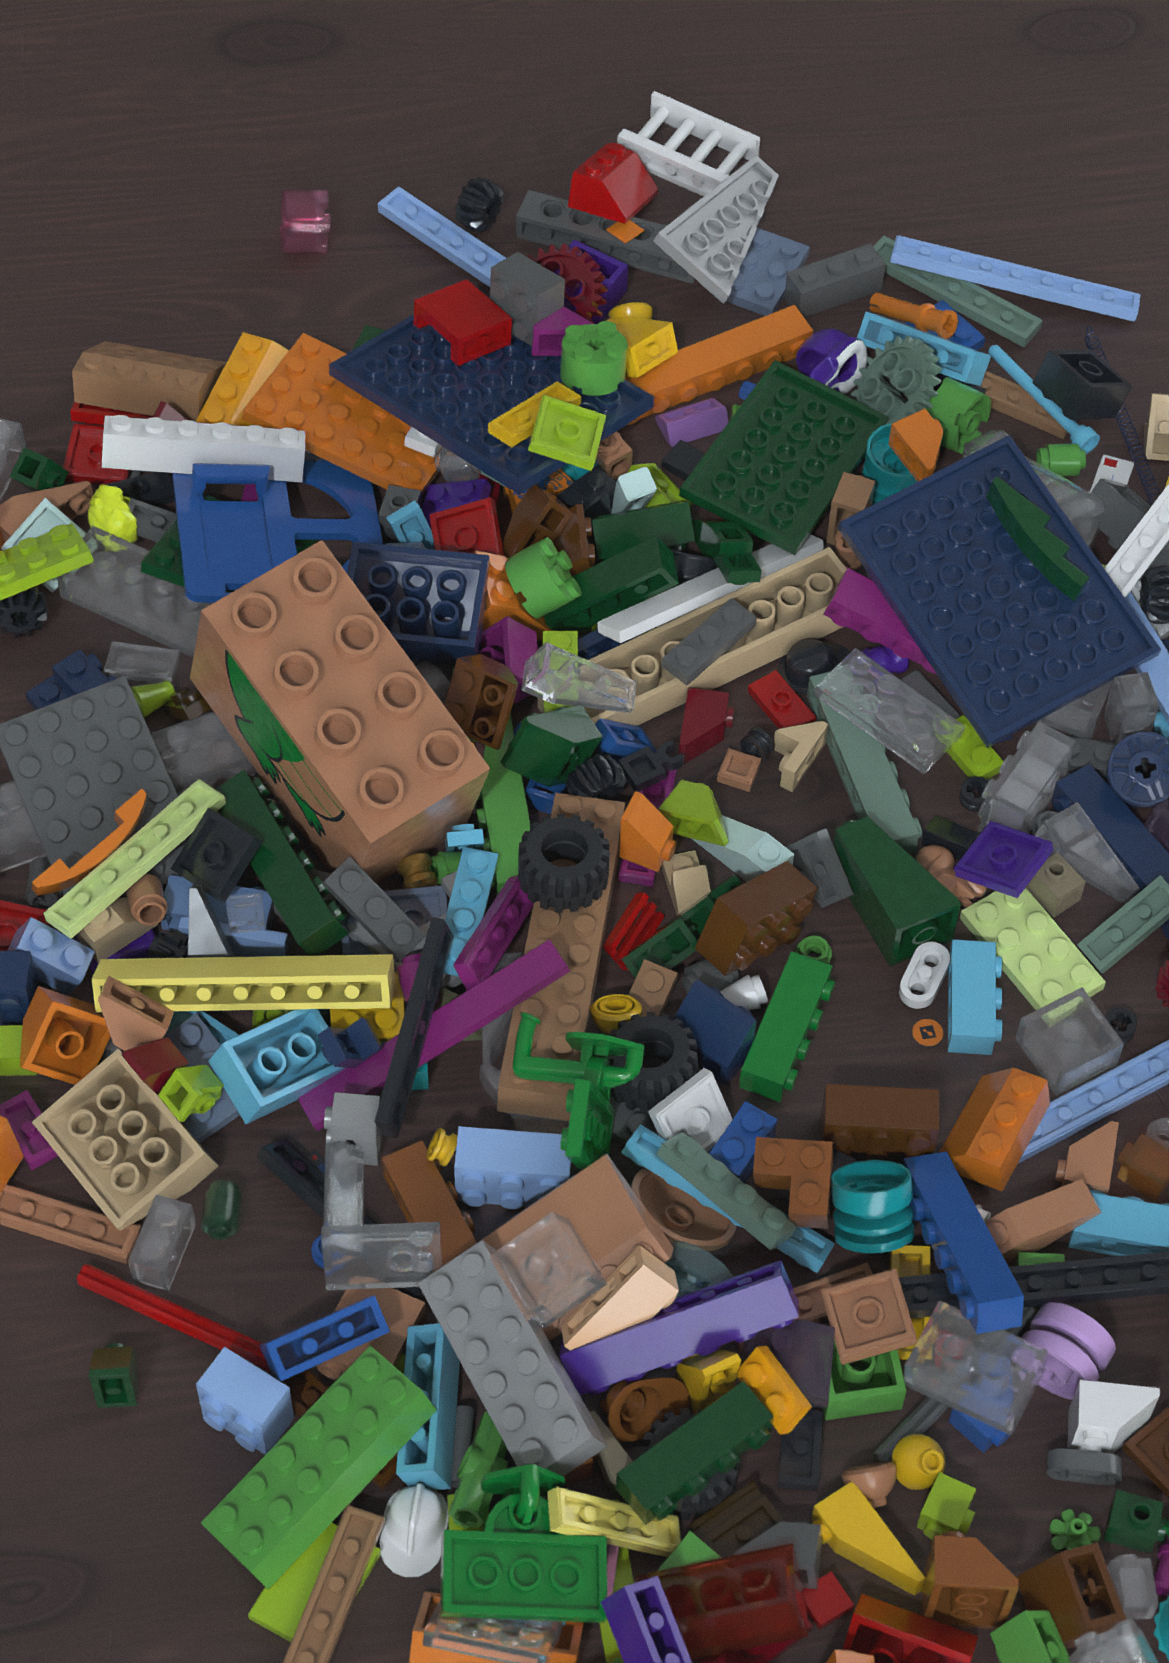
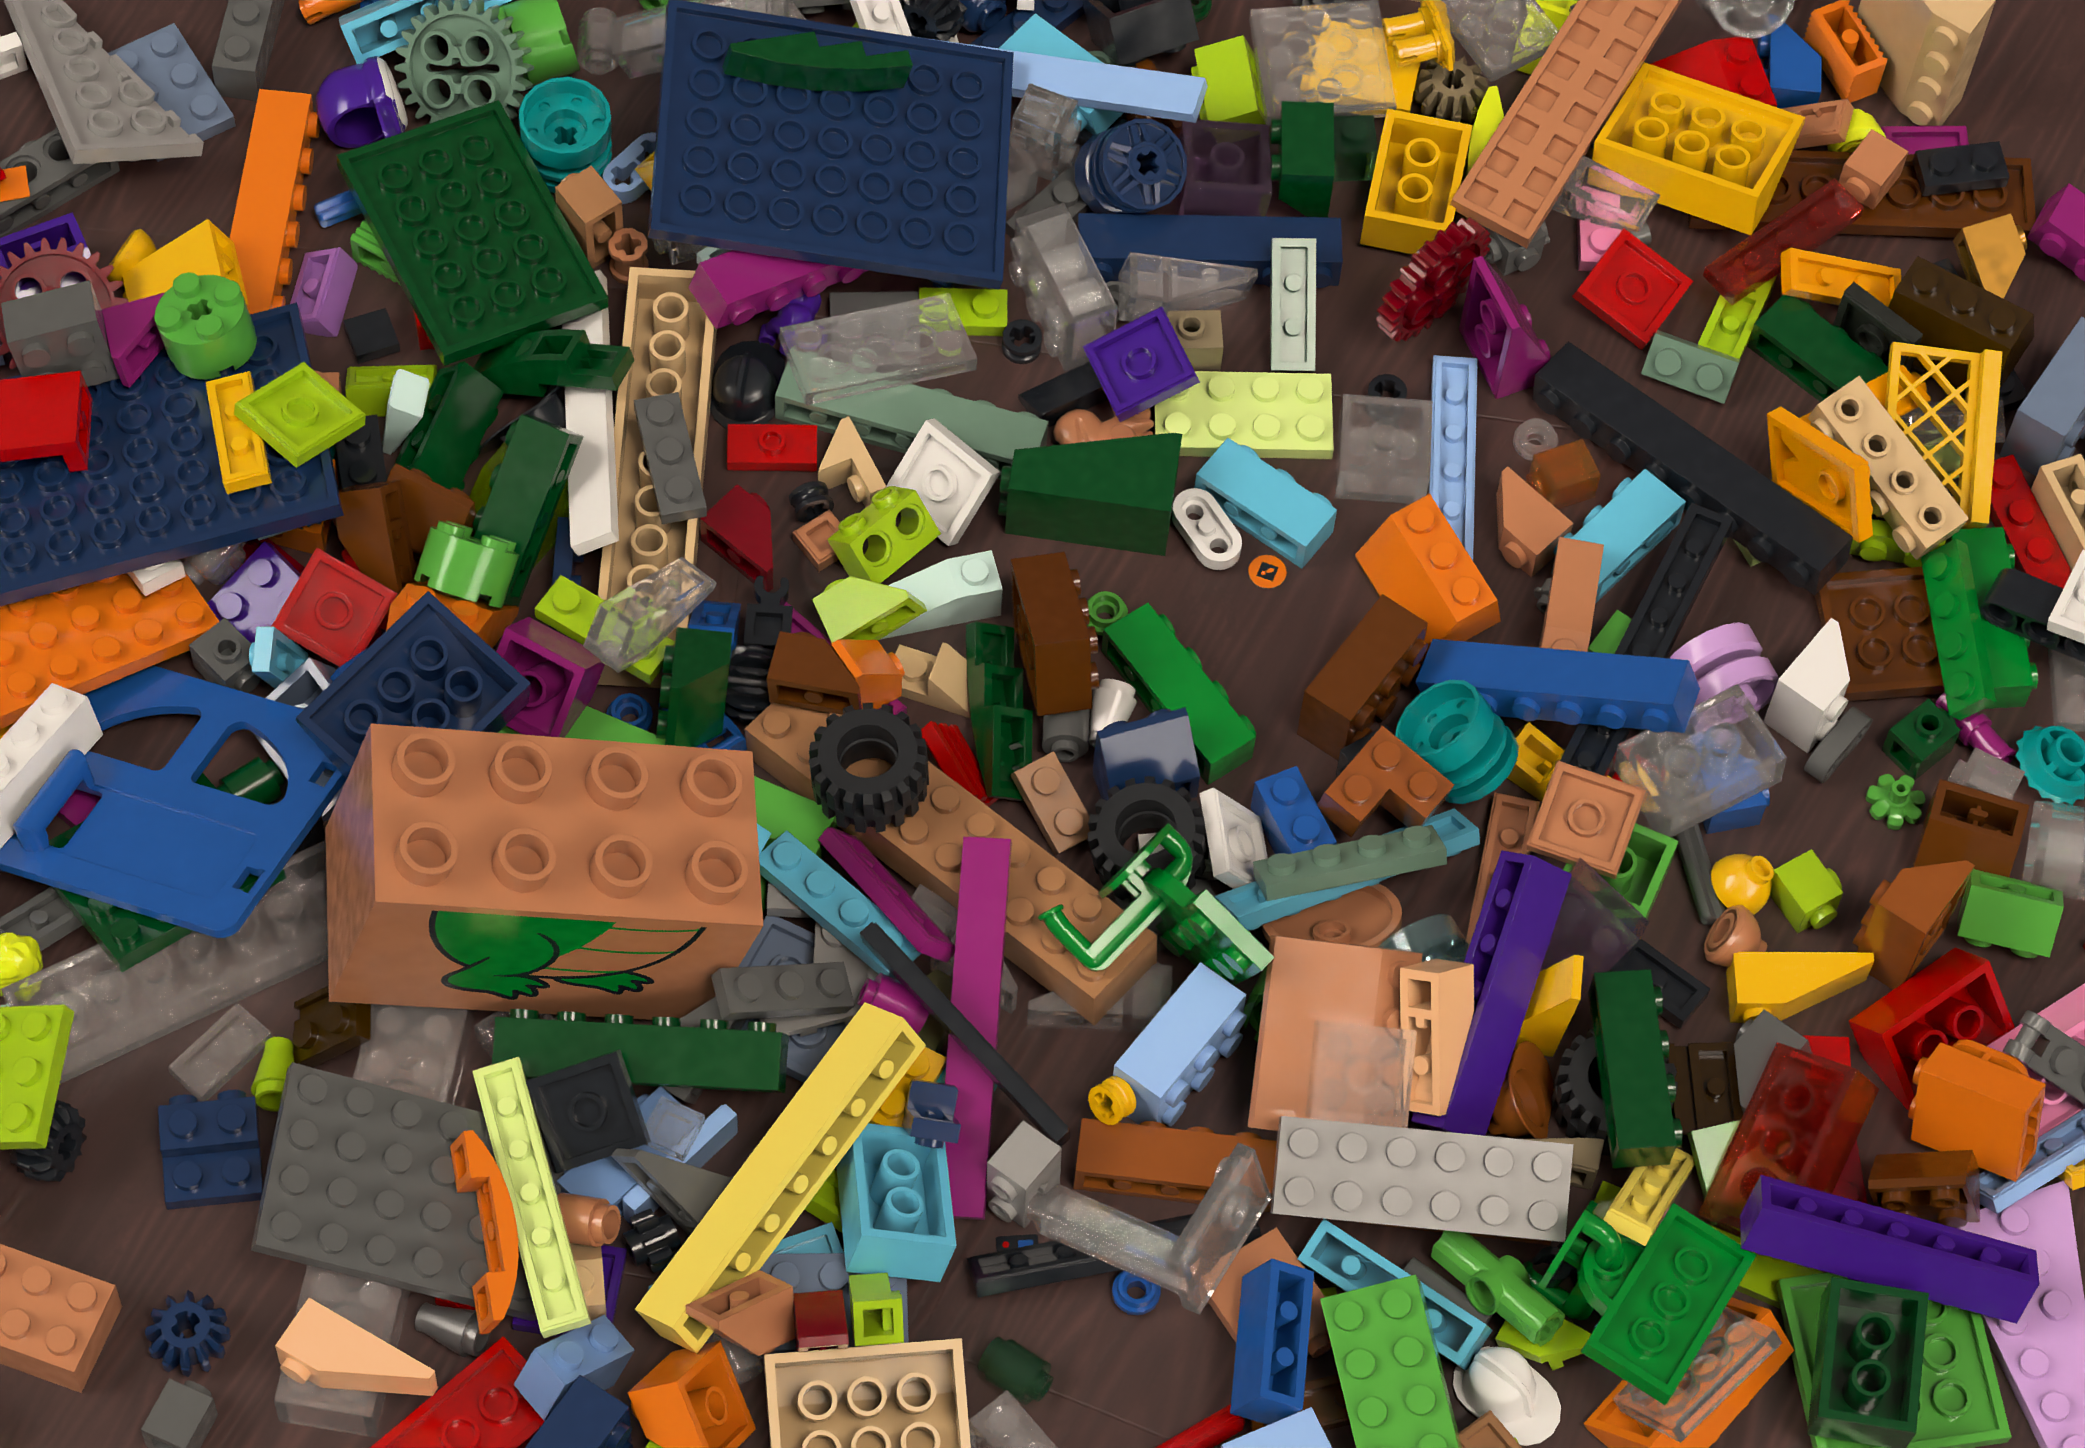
camera: 60 degrees left, 5 degrees up
(481, 698) = (598, 705): reddish brown slope -> none
(608, 795) = (810, 675): none -> reddish brown slope
(612, 1010) = (1064, 837): yellow brick -> none
(759, 803) = (887, 545): none -> lime brick
(774, 1389) = (1616, 949): light orange plate -> none
(819, 863) = (1015, 534): dark grey wing -> none
(825, 800) = (946, 477): none -> white plate
(917, 443) = (589, 94): orange slope -> none

